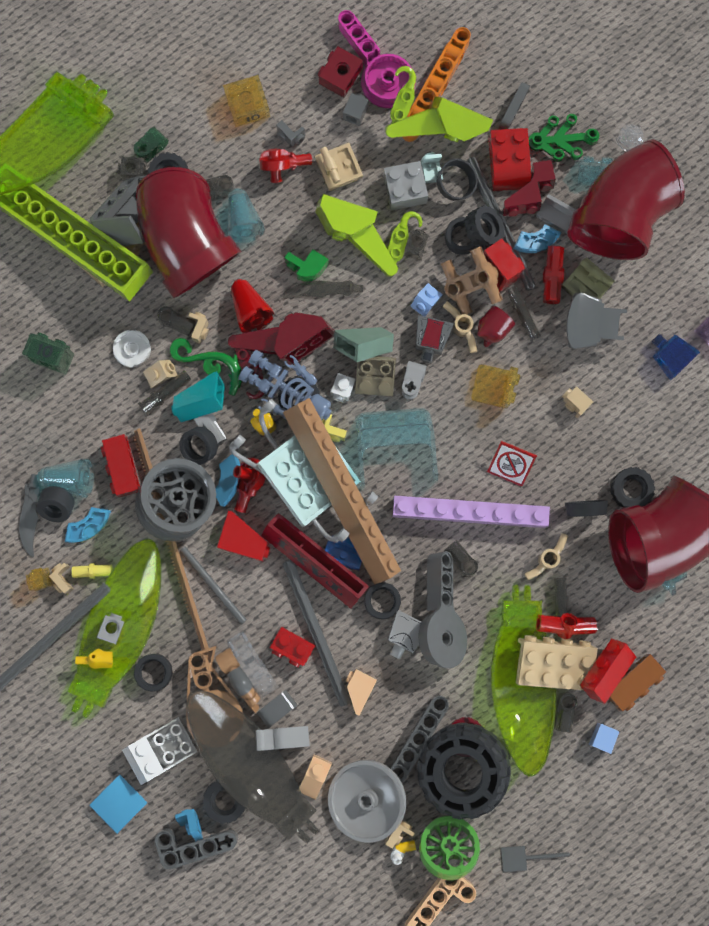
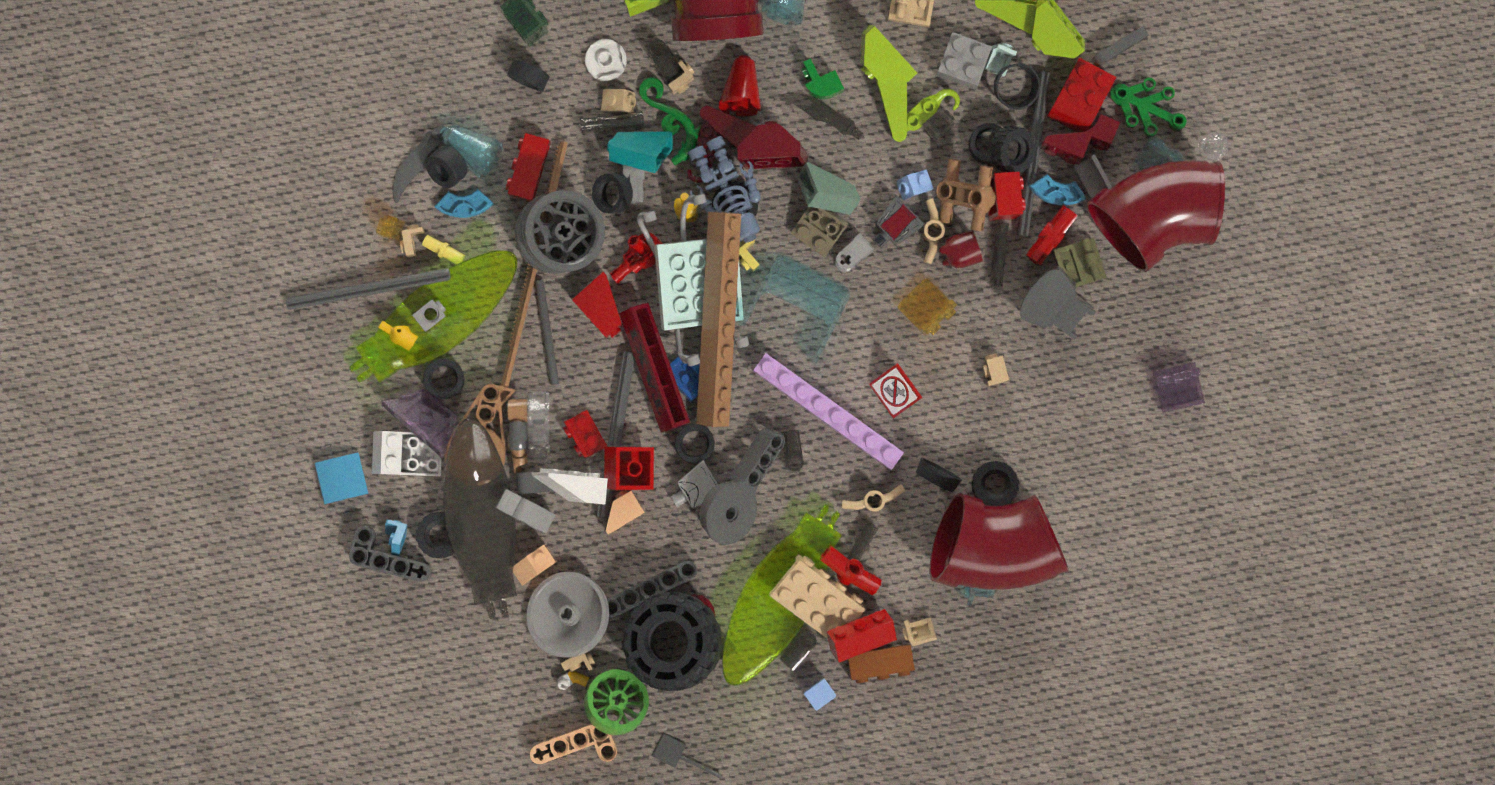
camera: 30 degrees right, 5 degrees up
(77, 395) = (528, 75): none -> black tyre
(156, 713) = (424, 417): none -> wing
(228, 483) = (618, 245): dark azure tile -> none
(309, 693) = (574, 485): none -> white slope
(342, 387) = (782, 220): white bracket -> none
(343, 652) = (629, 468): none -> red brick
(649, 639) = (919, 631): none -> tan bracket
(673, 354) = (1116, 382): clear blue torso -> none

